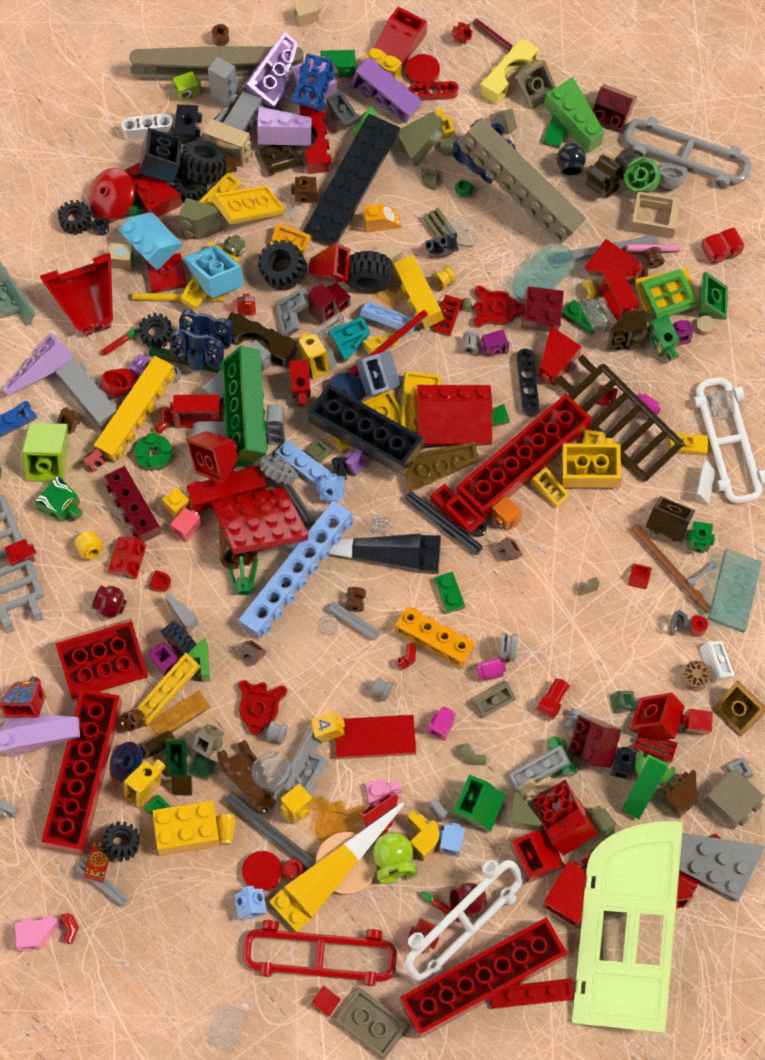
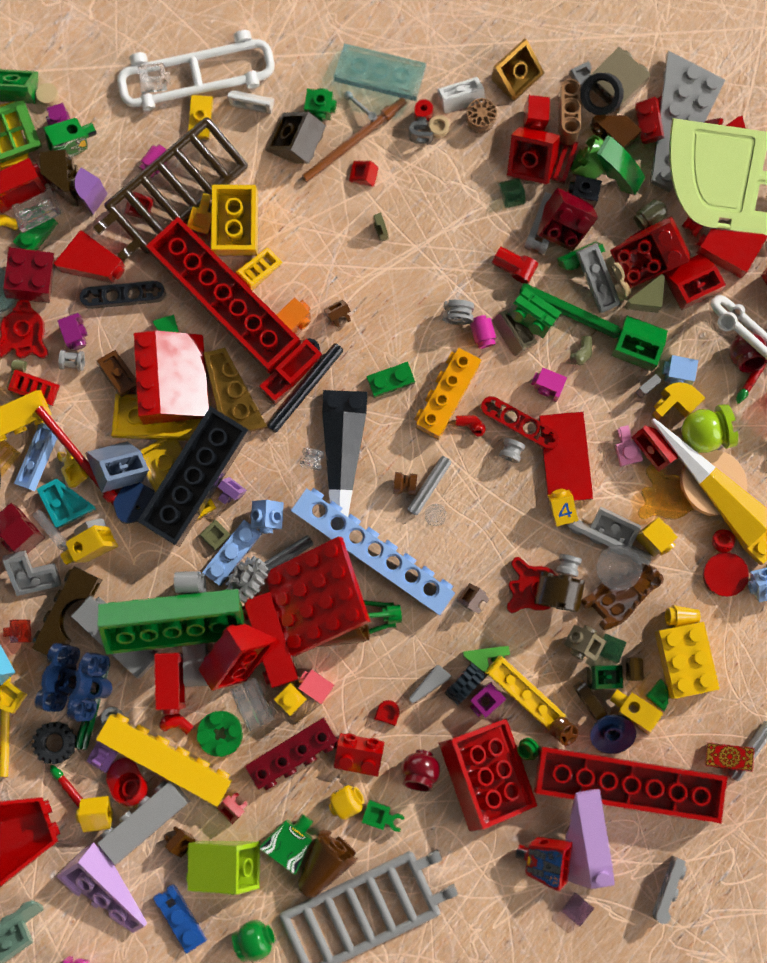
camera: 90 degrees left, 15 degrees up
(20, 552) = (359, 885): red bracket -> none
(42, 527) = (325, 863): none -> reddish brown cone
(74, 571) = (378, 815): none -> green plate
(96, 358) = (94, 814): none -> yellow brick
(120, 689) = (528, 749): none -> green plate
(121, 851) = (707, 719): black tyre -> none
(174, 474) = (253, 704): none -> clear brick
(180, 714) = (551, 678): clear yellow tile -> none
(251, 715) = (559, 592): none -> dark brown brick
(270, 831) = (681, 567): dark grey axle -> none
(300, 381) = (119, 562): red torso -> none
(339, 466) = (233, 505): black bush -> none
(408, 697) = (521, 420): none -> red beam
(459, 375) = (117, 373): none -> reddish brown plate
(506, 711) = (534, 313): none -> green brick
(511, 744) = (576, 313): none -> green axle
(615, 352) = (90, 190): none -> medium lavender brick
(685, 640) = (439, 126): none -> tan tile
(697, 825) = (649, 120): none -> red plate
(708, 747) = (570, 103): none -> medium nougat beam
(720, 786) = (585, 93): none -> black tyre

